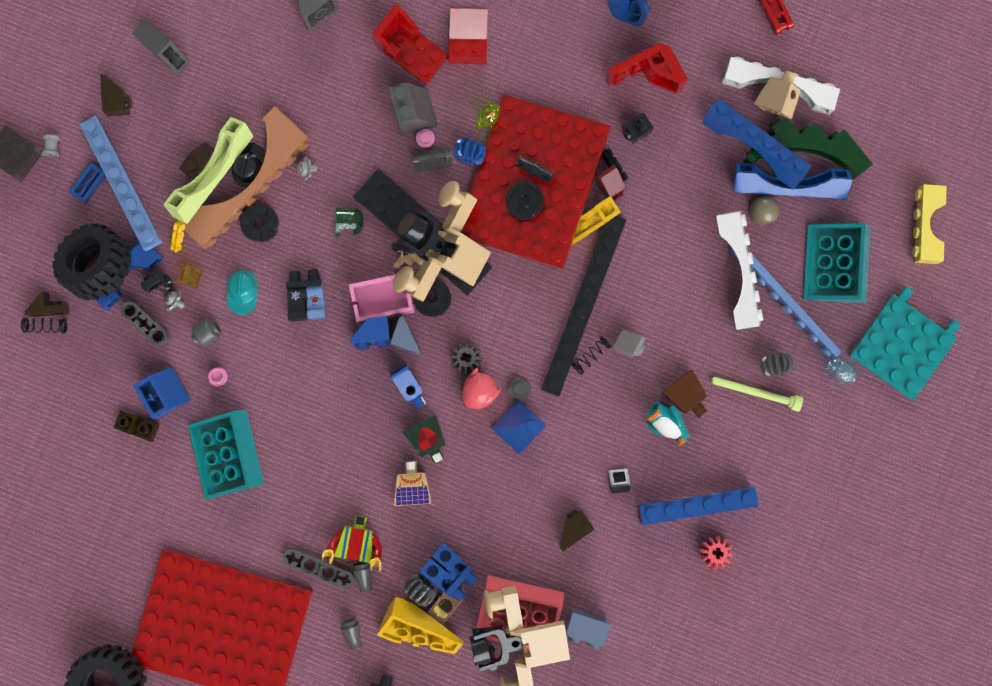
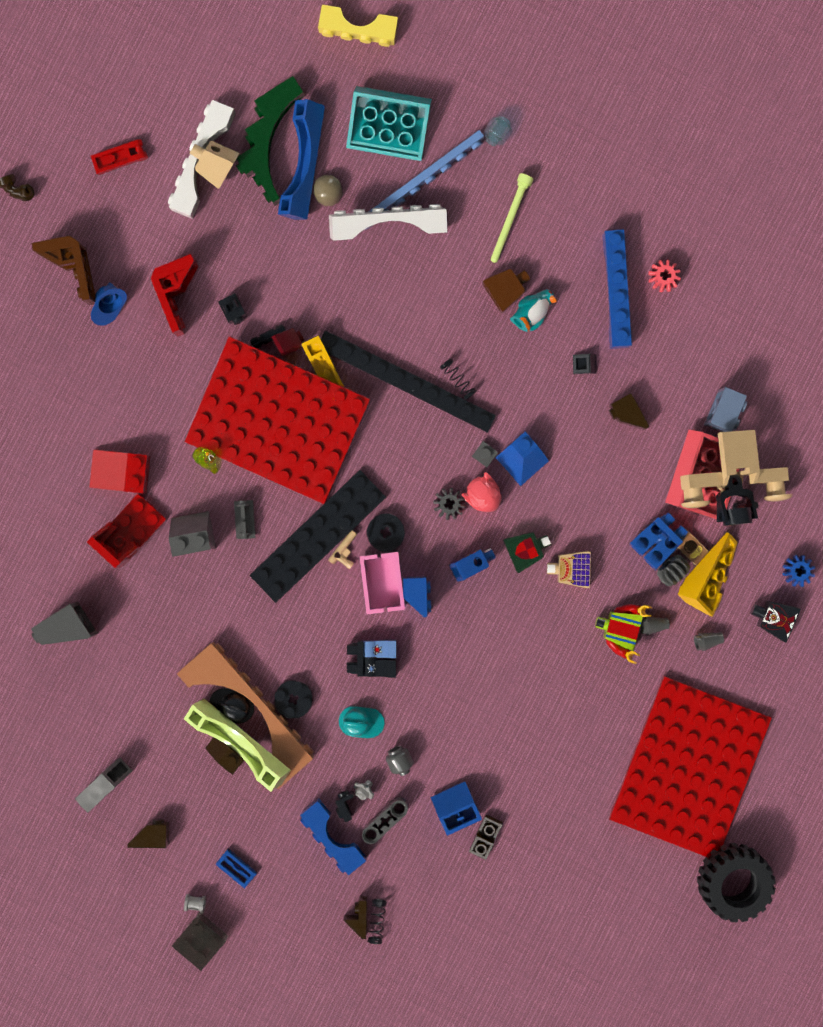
camera: 85 degrees left, 5 degrees up
(79, 249) = (306, 882): black tyre -> none
(121, 183) = (240, 835): medium blue plate -> none
(177, 236) = (300, 781): yellow axle -> none
(190, 276) = (341, 772): clear yellow tile -> none
(217, 376) = (444, 752): bright pink plate -> none
(225, 454) = (522, 750): teal slope -> none
(305, 168) = (242, 648): light grey plant -> none
(318, 570) = (645, 669): dark grey beam -> none
(348, 219) = (299, 608): clear green helmet -> none
(403, 338) = (425, 563): sand blue slope -> none
(425, 138) = (222, 525): bright pink plate -> none
(467, 258) = (318, 545): tan piece -> none
(469, 151) = (241, 481): blue gear -> none
(525, 201) = (298, 430): black tile -> none
(534, 169) = (267, 417): black pin -> none
(629, 344) = (451, 340): light grey slope -> none
(776, 364) = (485, 195): dark grey gear -> none
(786, 165) = (283, 165): blue arch -> none
(904, 346) = (477, 66): teal plate -> none

